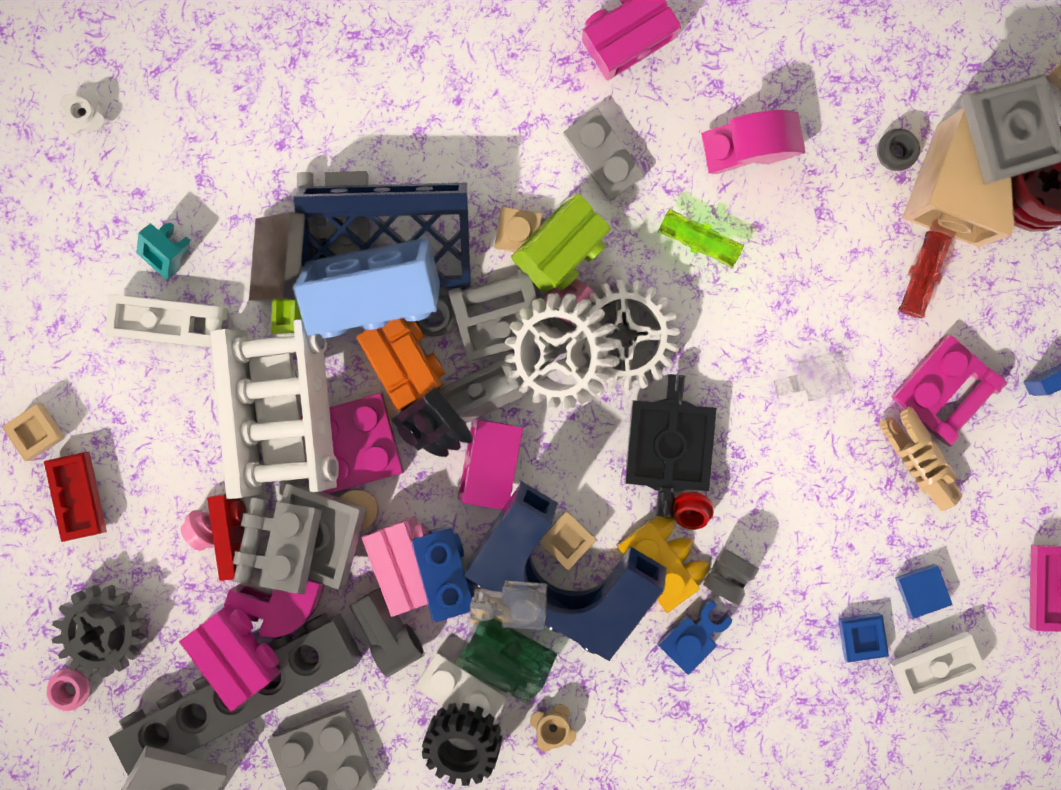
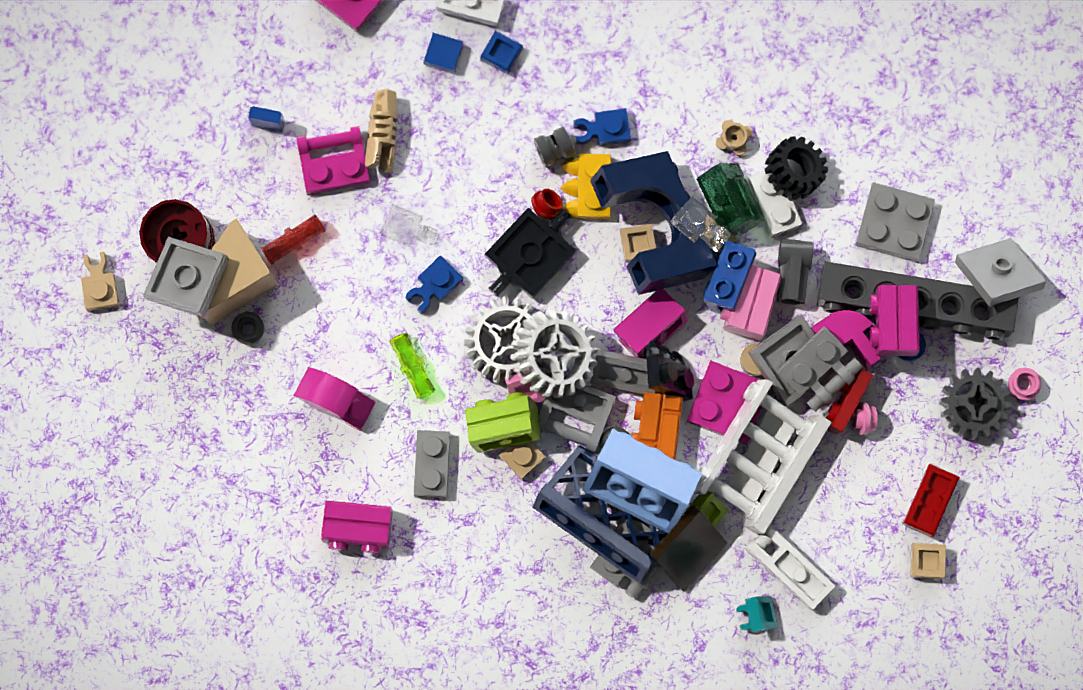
camera: 145 degrees left, 10 degrees down
(743, 346) = (437, 280): none -> blue plate

